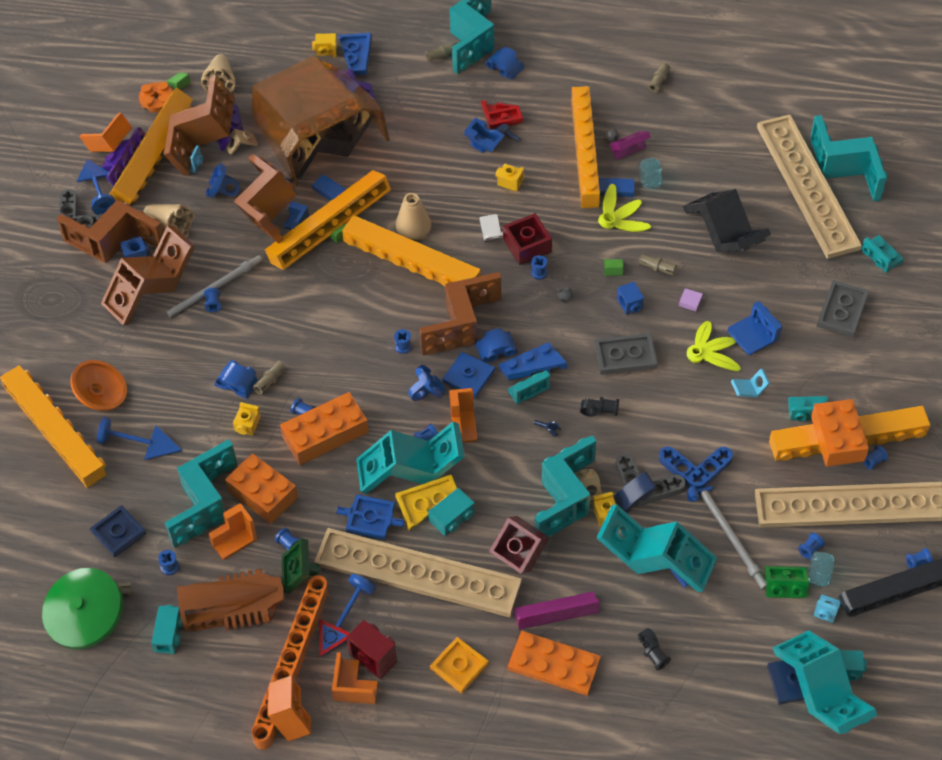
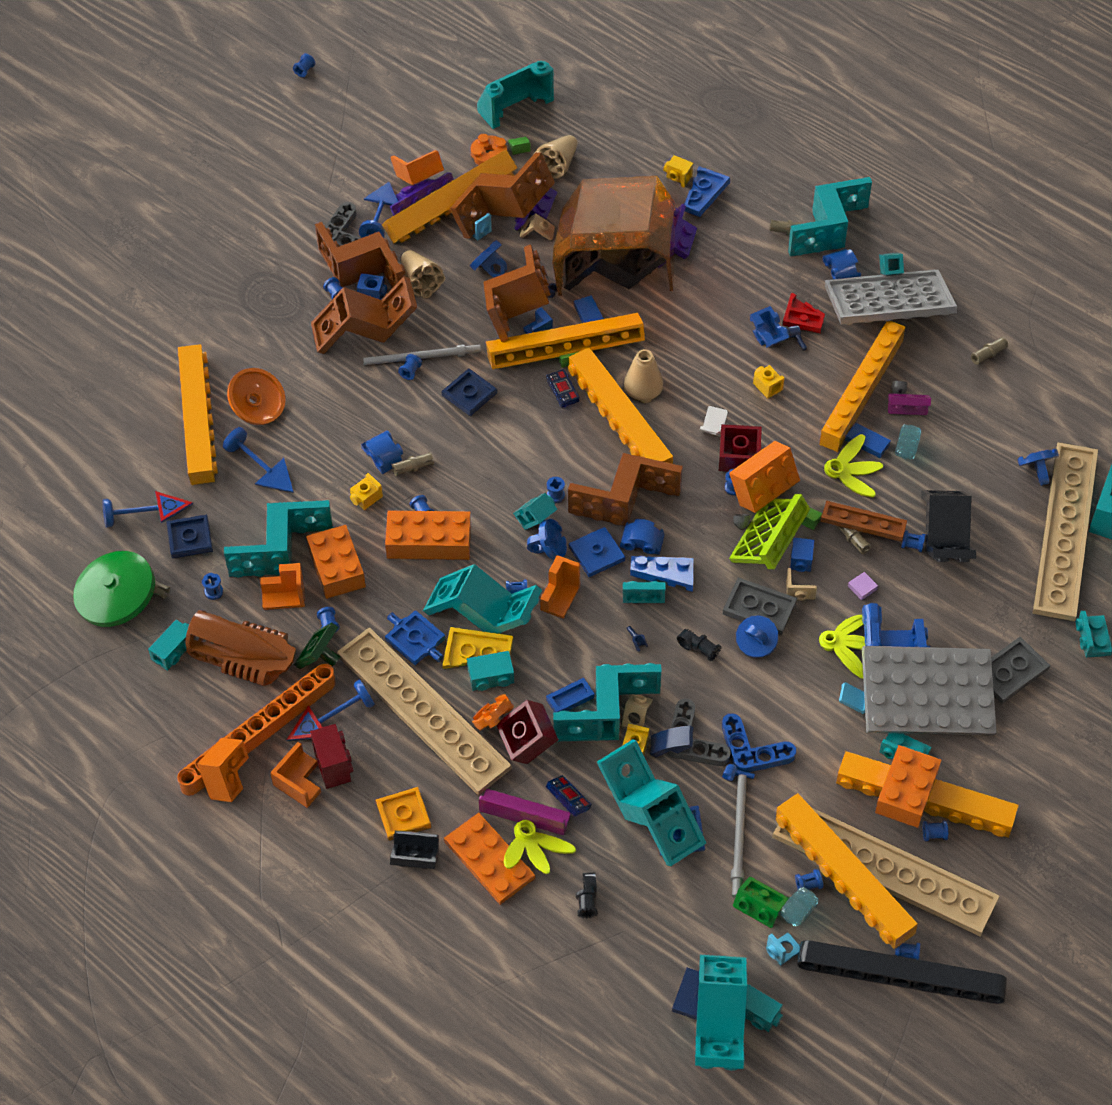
camera: 30 degrees right, 0 degrees up
(79, 514) = (166, 504): none -> blue piece
(104, 266) = (332, 286): none -> blue bush
(159, 25) = (531, 81): none -> teal windscreen
(276, 297) = (469, 392): none -> dark blue plate
(350, 258) = (562, 388): none -> tile
(401, 365) = (535, 511): none -> teal brick
(479, 544) = (490, 714): none -> orange plate
(492, 689) = (415, 850): none -> black bracket
(527, 500) = (570, 696): none -> blue tile
(543, 44) = (891, 263): none -> teal brick
(560, 69) = (890, 297): none -> light grey plate
(563, 250) = (764, 476): none -> orange brick
(577, 630) = (531, 842): none -> neon yellow plant
(582, 578) = (568, 795): none -> tile
(607, 287) = (779, 536): none -> lime fence
(641, 378) = (757, 636): none -> blue tile
(648, 327) = (801, 592): none -> tan bracket
(660, 249) = (864, 521): none -> dark orange panel
(705, 247) = (913, 541): none -> blue bush
(726, 331) = (872, 624): none -> blue axle
(757, 144) = (1038, 460): none -> blue tile
(799, 353) = (928, 690): none -> light grey plate
(837, 522) = (846, 871): none -> light orange brick

